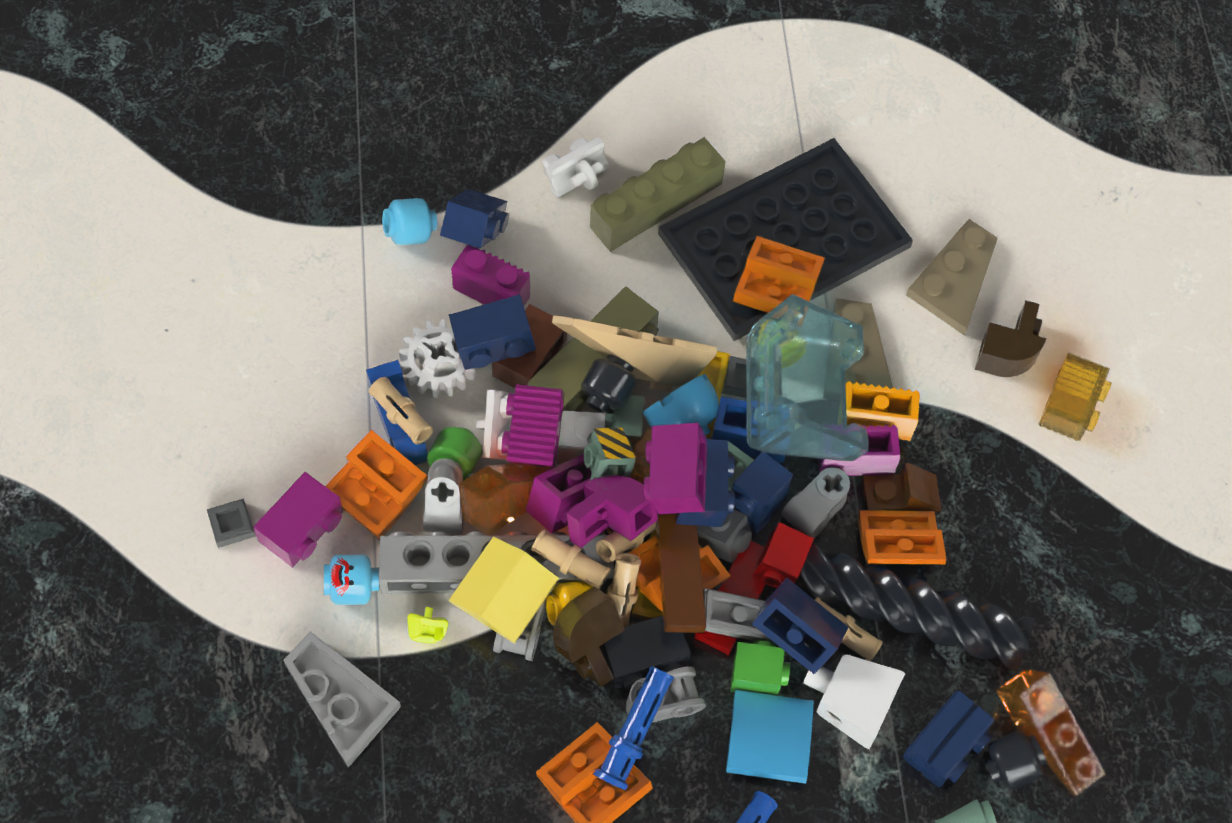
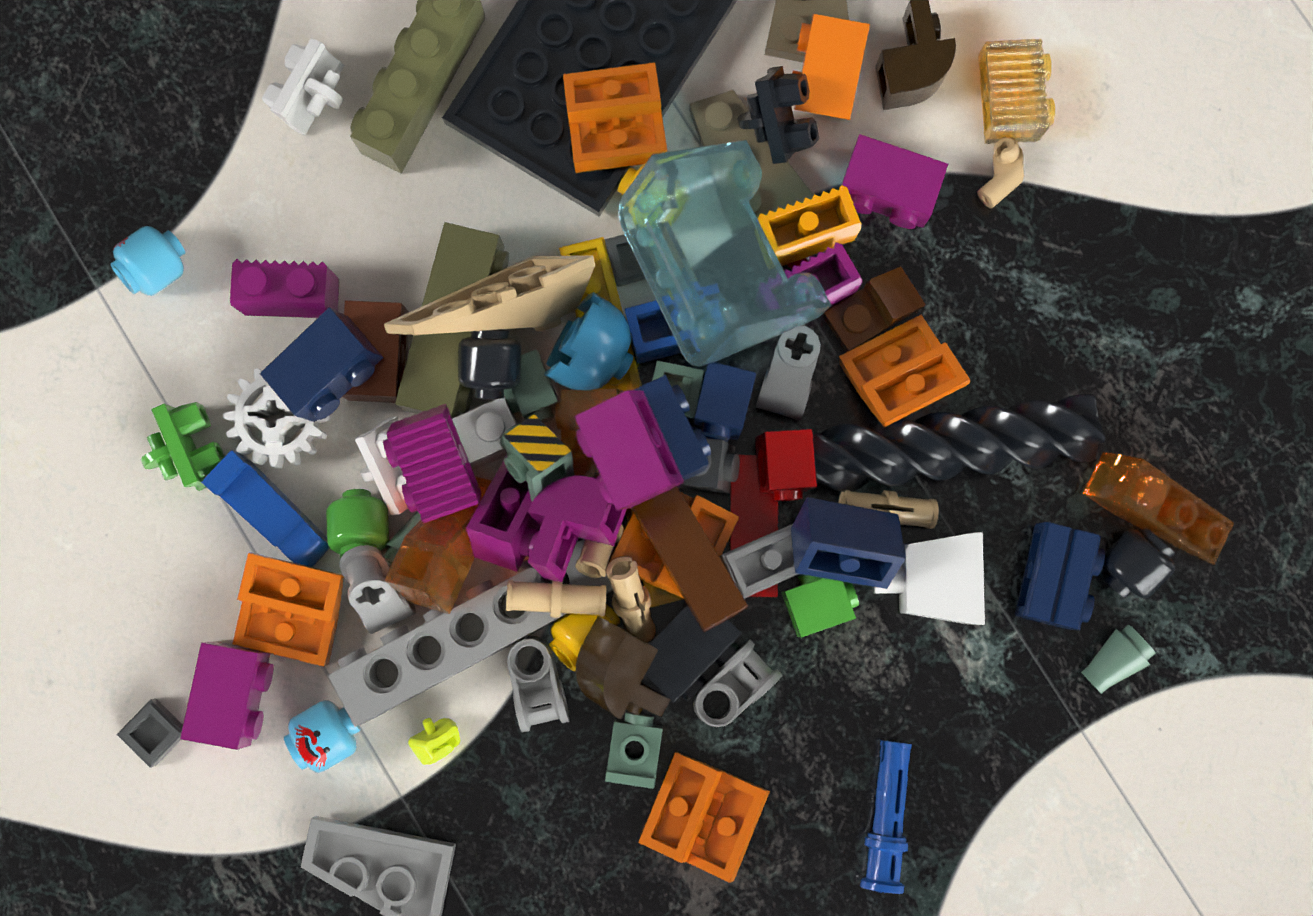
camera: 20 degrees left, 20 degrees up
(369, 332) = (176, 428): none -> bright green hips
(415, 425) = (268, 513): tan pin -> none
(474, 218) = (222, 223): dark blue brick -> none
(504, 589) = (499, 669): light yellow slope -> none
(565, 717) = (637, 771): none -> sand green brick
(627, 745) = (724, 774): blue pin -> none
(770, 736) = (867, 671): dark azure slope -> none
(892, 326) = (773, 117): none -> black hips
(947, 316) = (831, 64): none -> orange brick
(956, 413) = (893, 182): none -> magenta brick
(1045, 448) = (1007, 169): none -> tan arm

